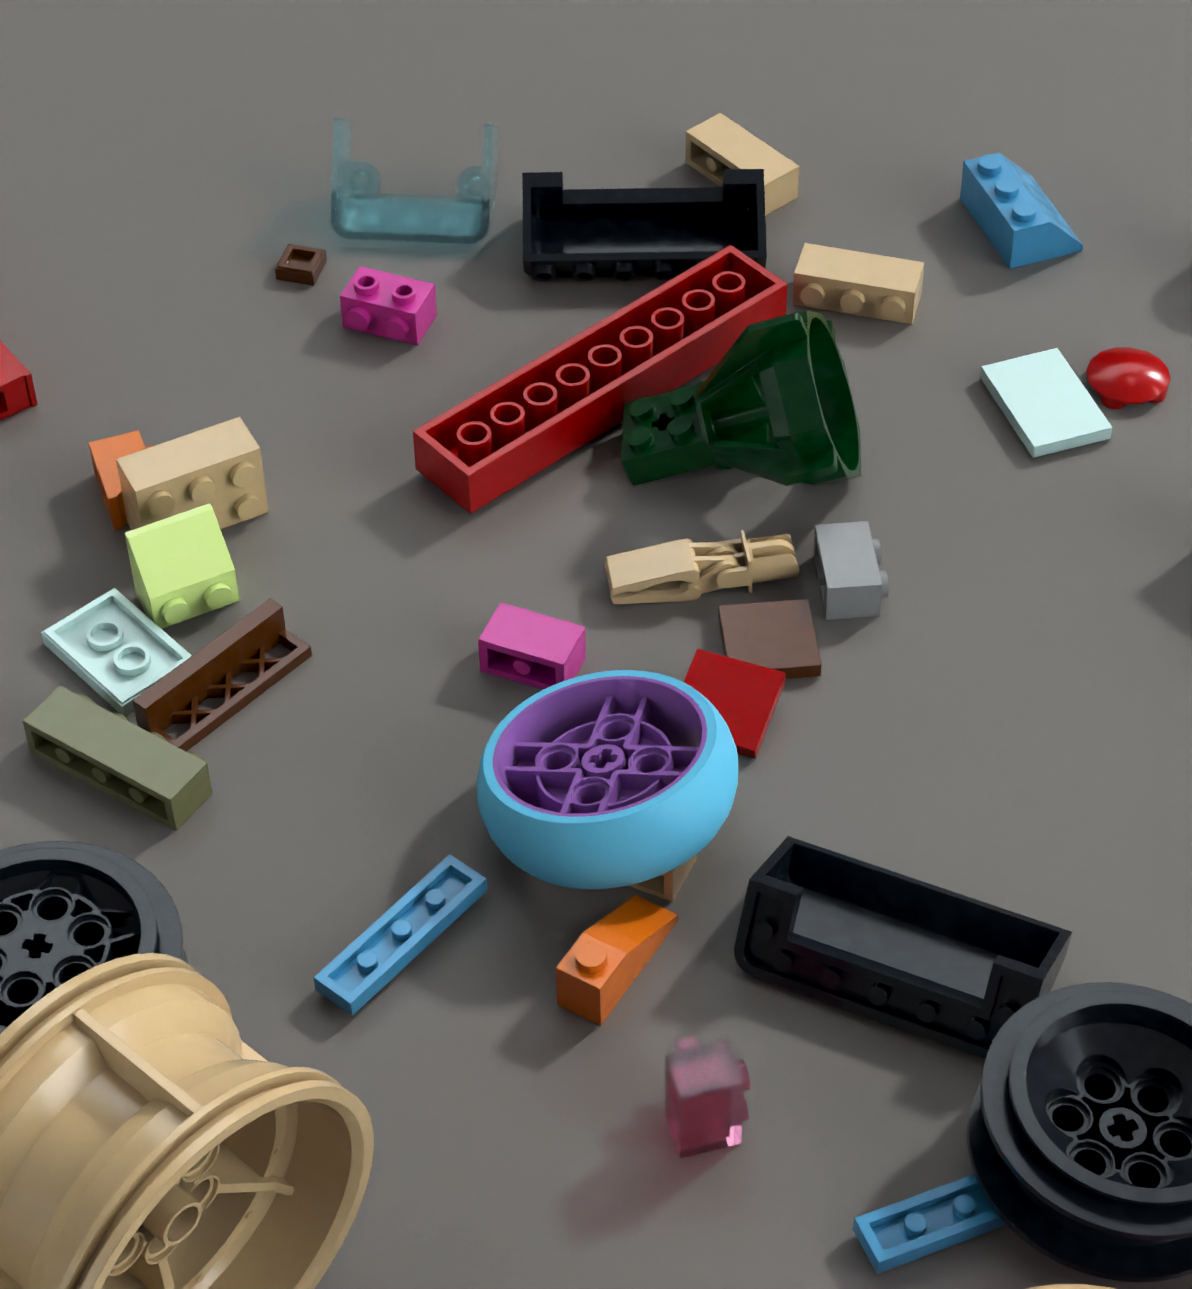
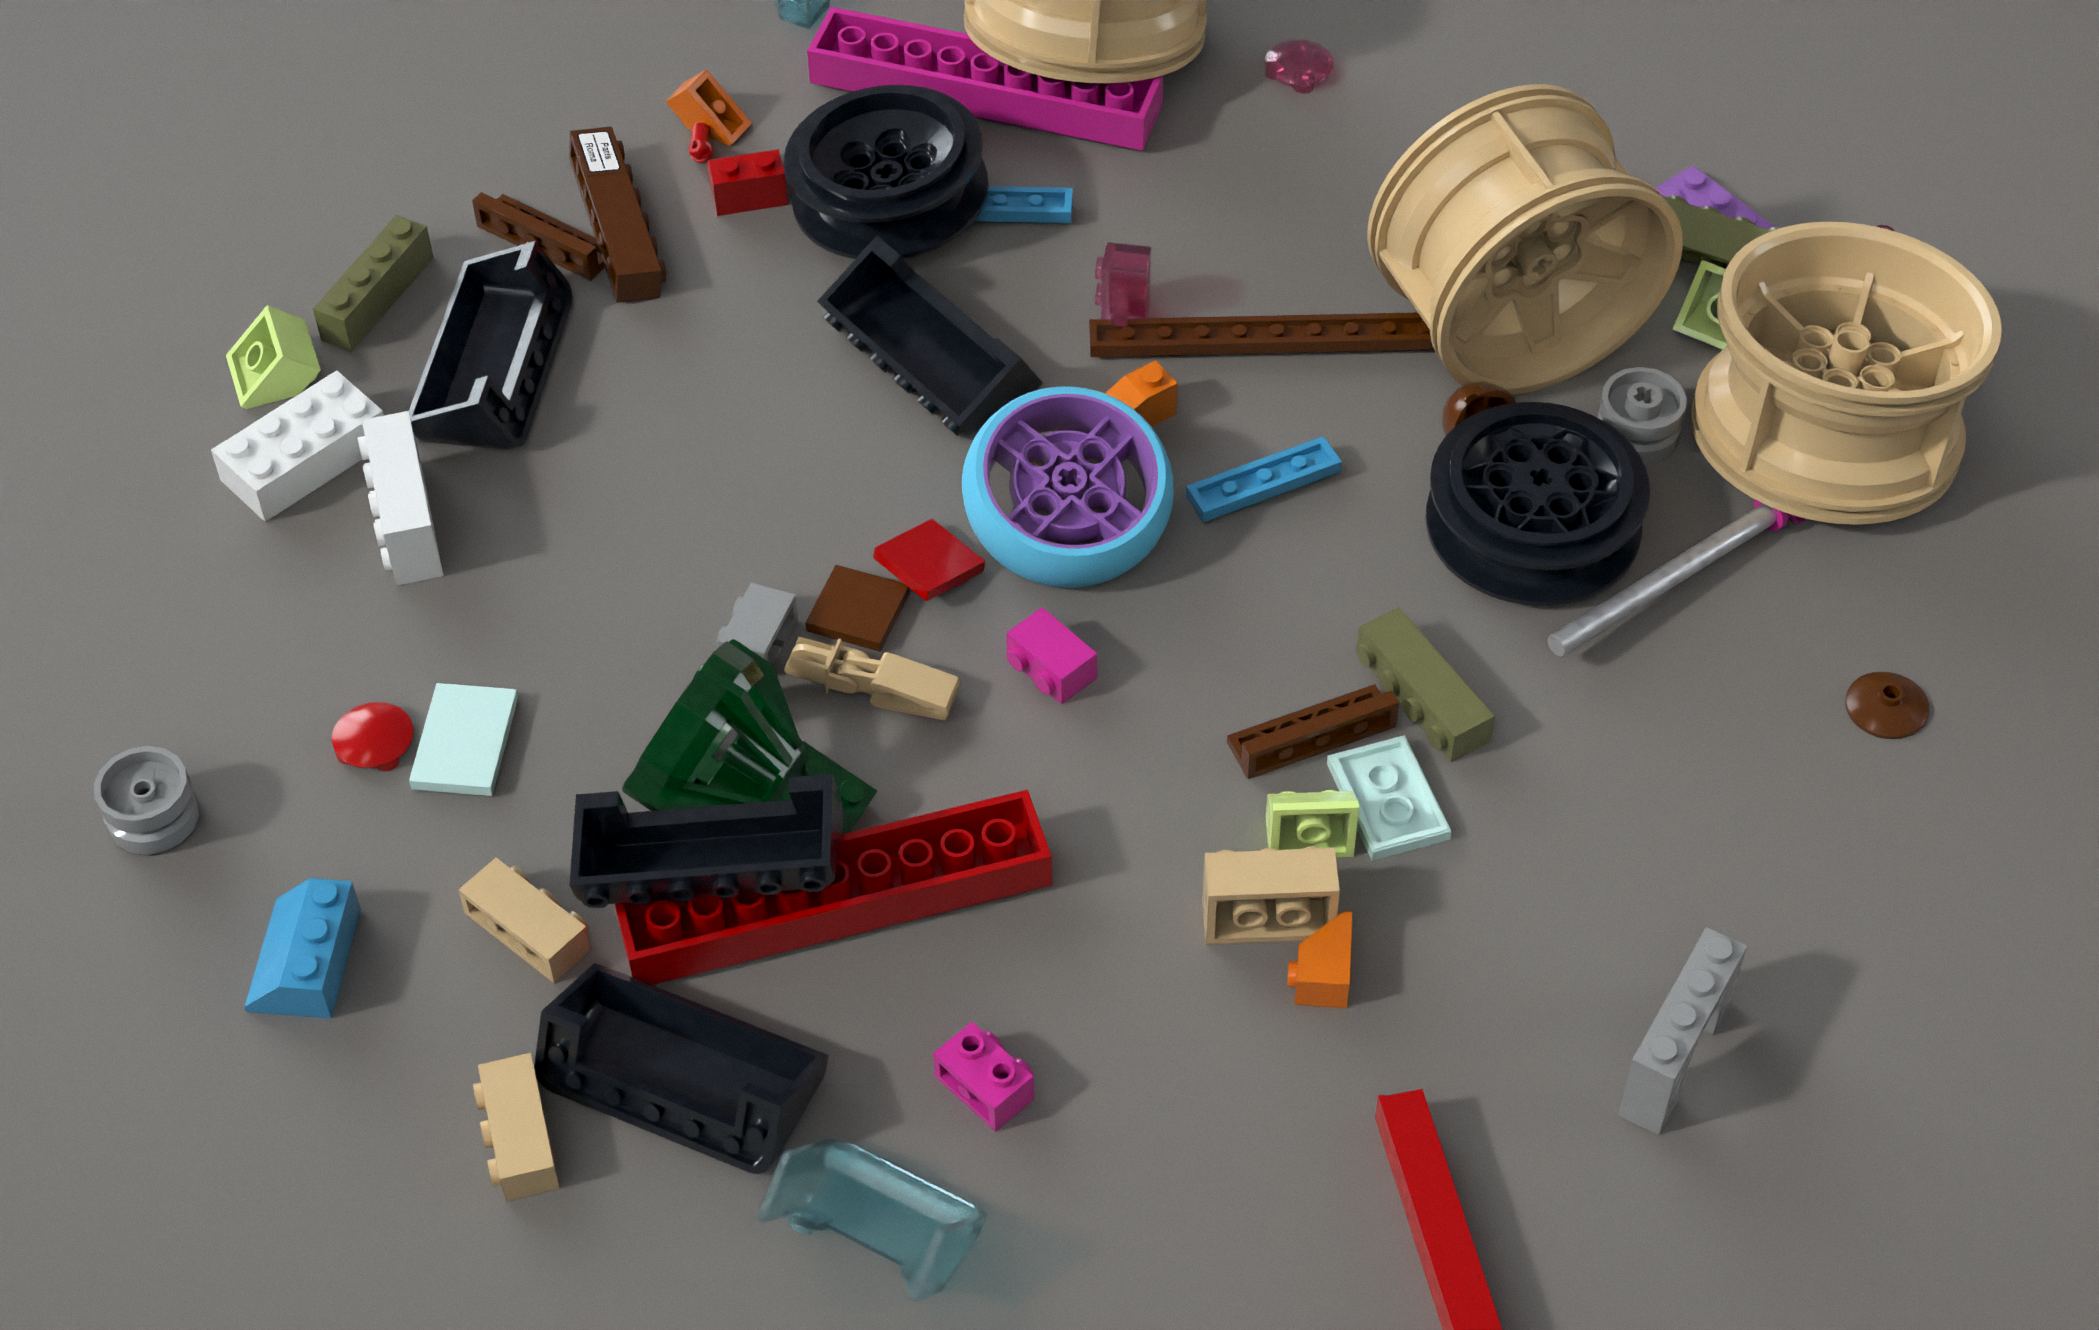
camera: 155 degrees left, 5 degrees up
(300, 264) = (1039, 1193): reddish brown tile -> none
(521, 1124) = (1260, 334): none -> reddish brown plate
(684, 309) = (706, 848): none -> black windscreen

